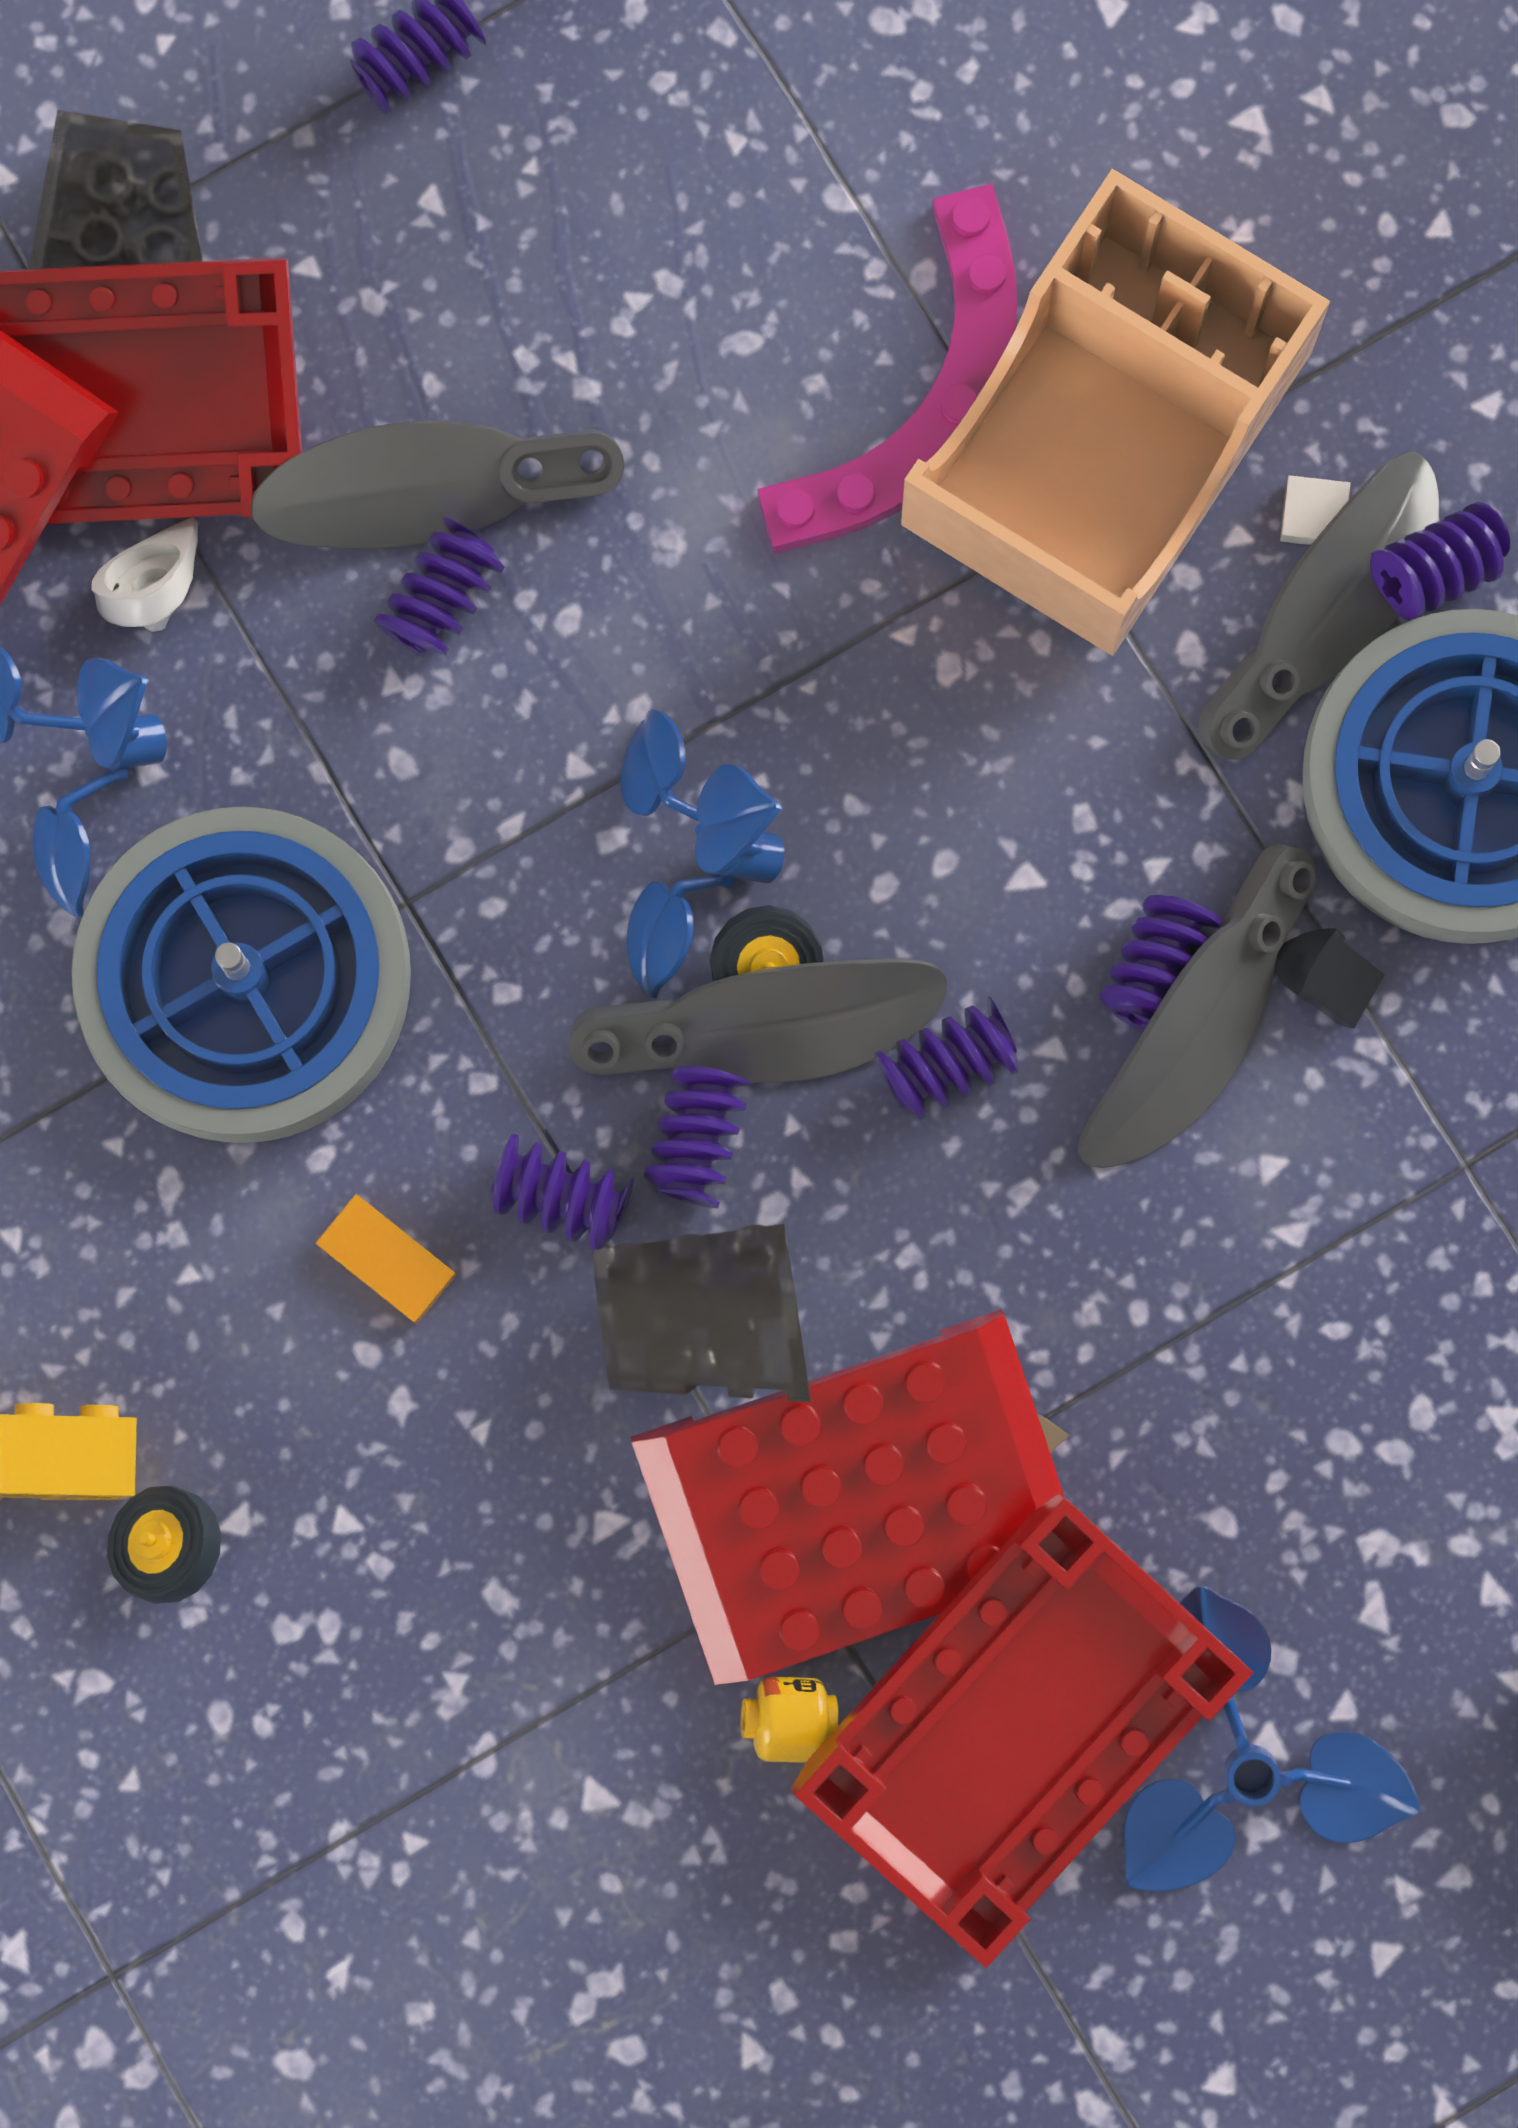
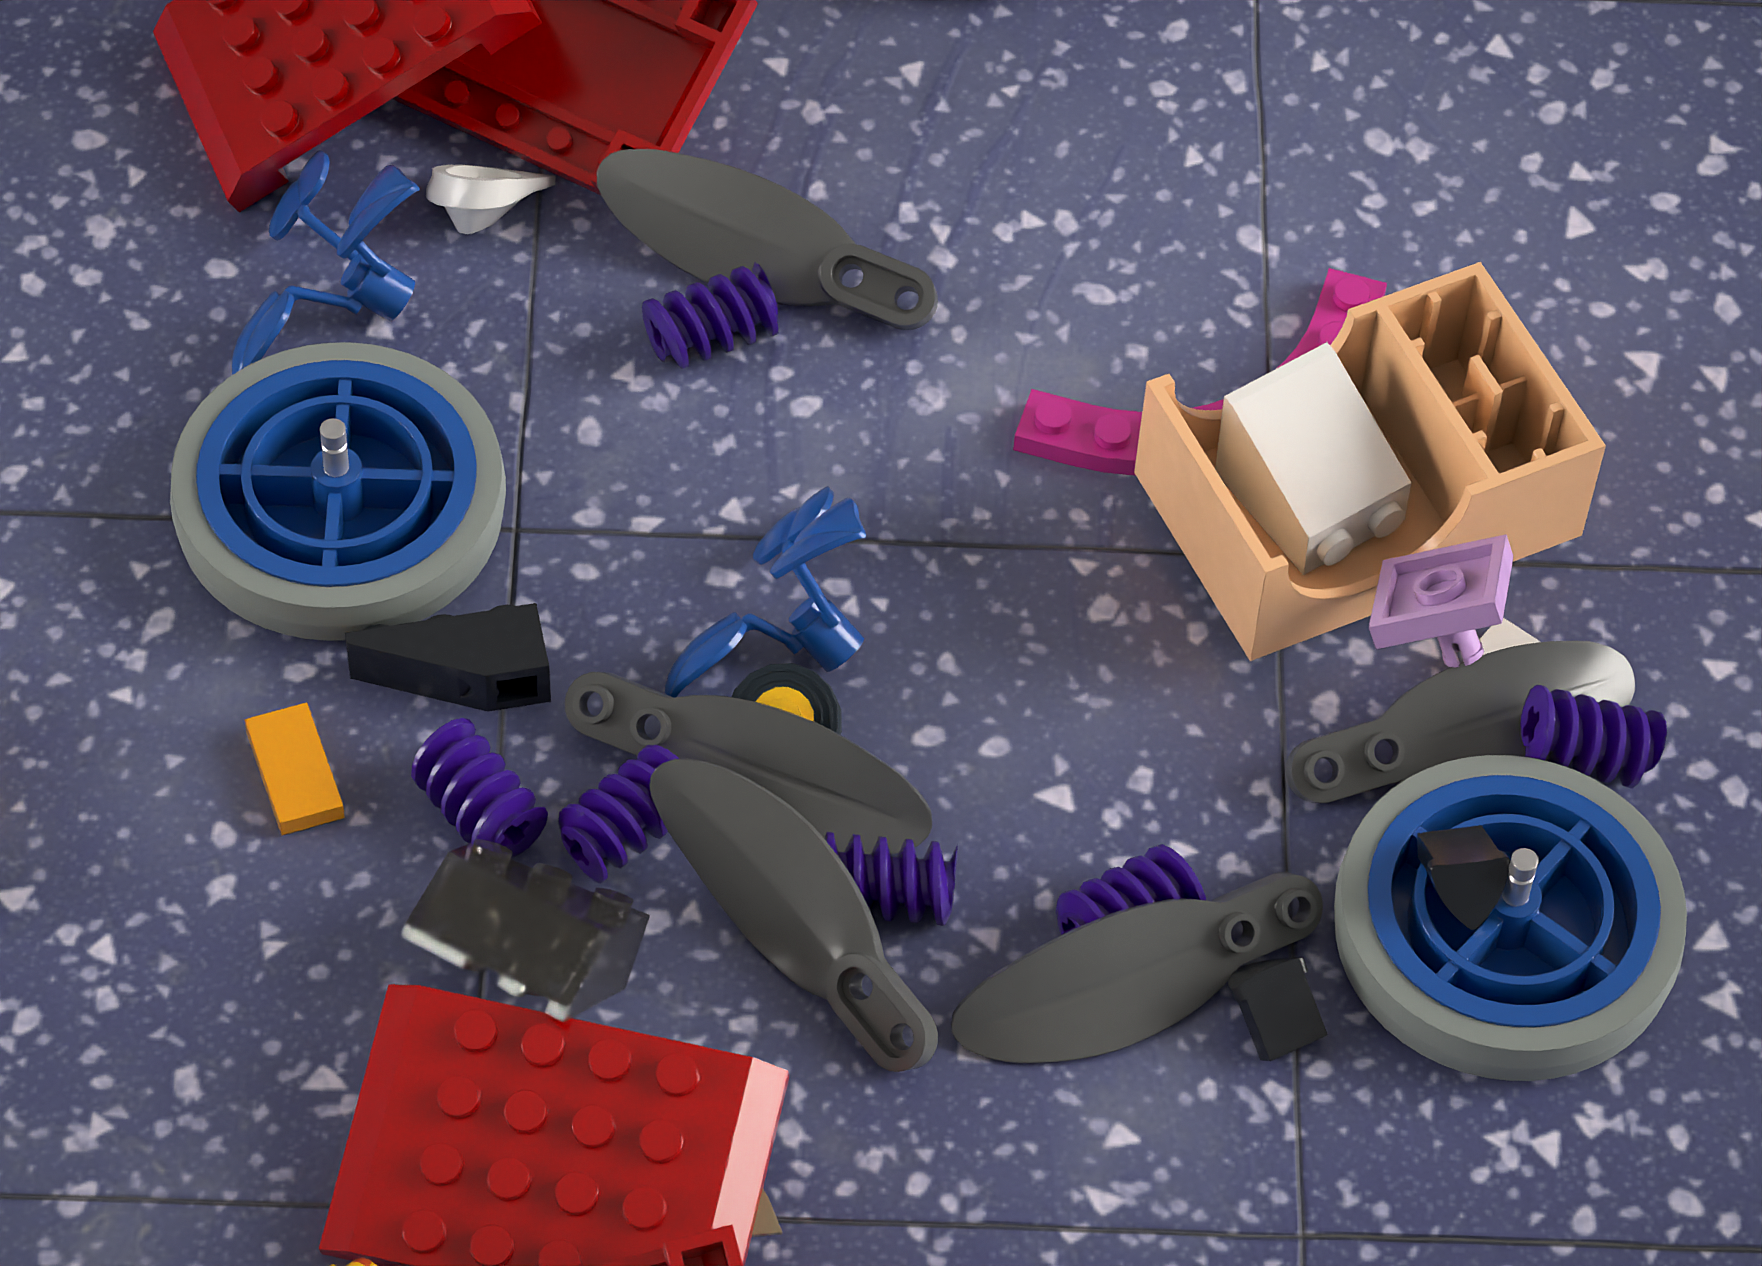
camera: 25 degrees right, 25 degrees down
(468, 1066) = (465, 659): none -> black slope
(897, 1138) = (792, 902): none -> dark grey plant
(1068, 445) = (1311, 461): none -> white slope
(1265, 524) = (1443, 597): none -> lavender tile
(1427, 775) = (1464, 871): none -> black tile

